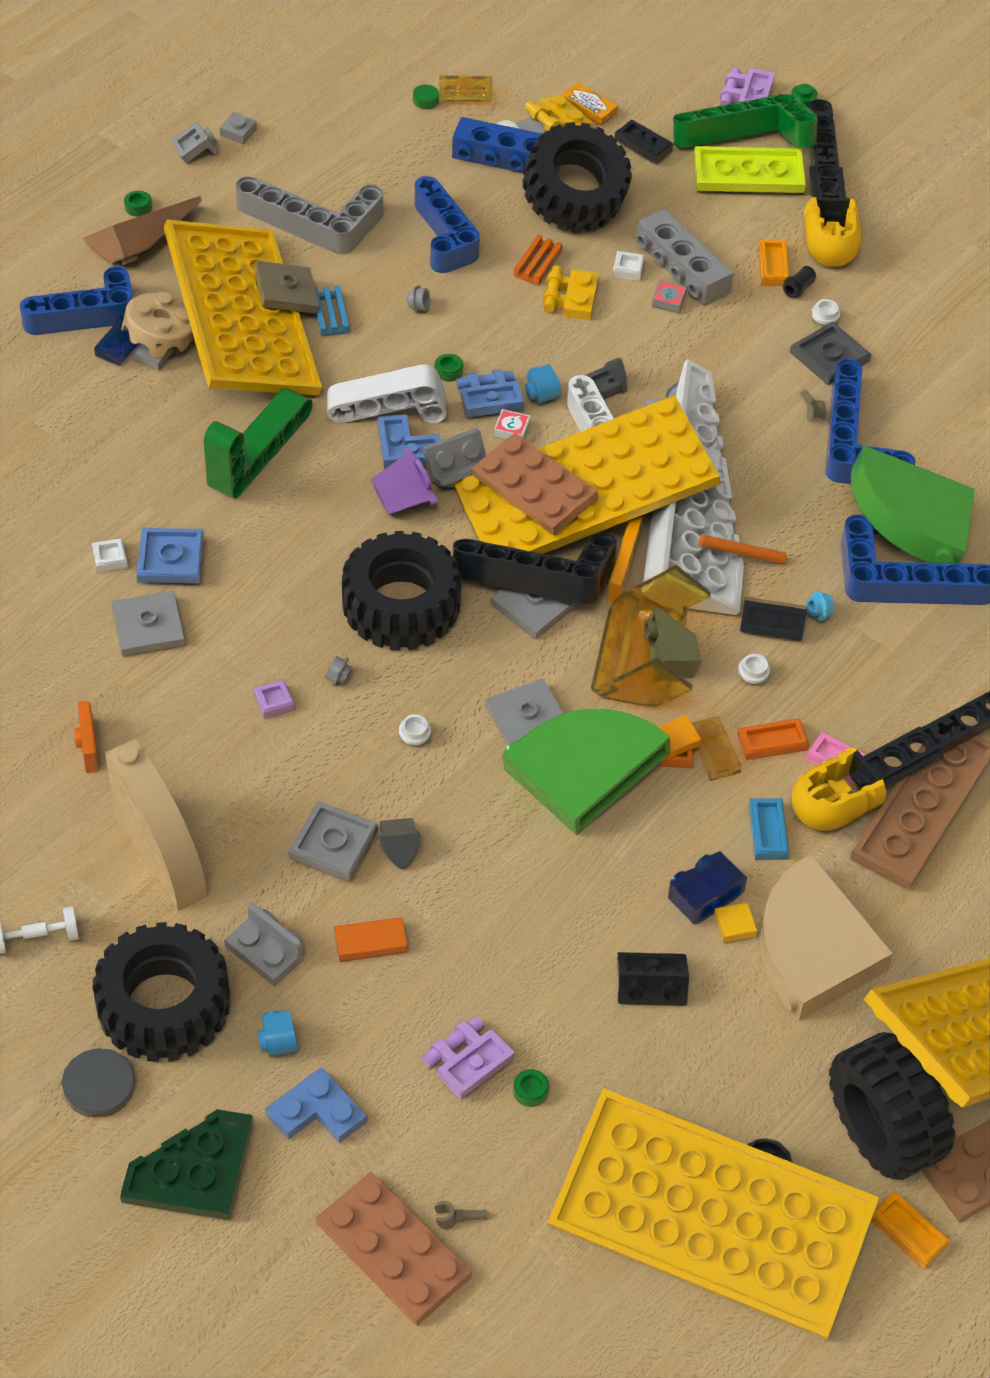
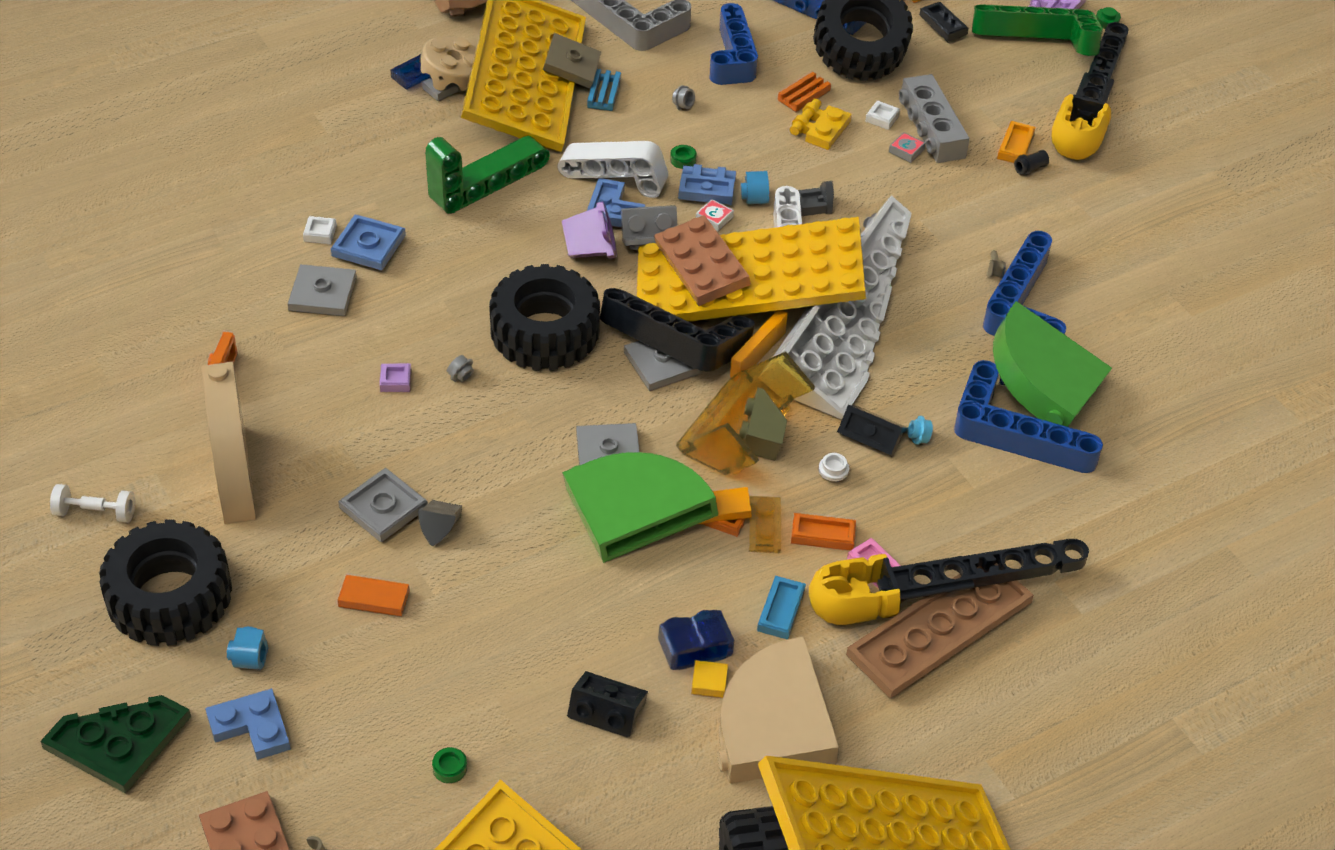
camera: 20 degrees right, 5 degrees down
(78, 308) = (393, 38): blue beam -> none
(98, 1082) = (78, 643): dark grey tile -> none
(266, 945) = (279, 574): light grey bracket -> none
(414, 730) = (501, 434): white plate -> none
(472, 1065) = (406, 727): lavender plate -> none
(742, 549) = (869, 363): orange bar -> none
(749, 169) = (1028, 64): neon yellow plate -> none
(826, 312) = (1044, 192): white plate -> none
(826, 348) = (1035, 217): dark grey tile -> none

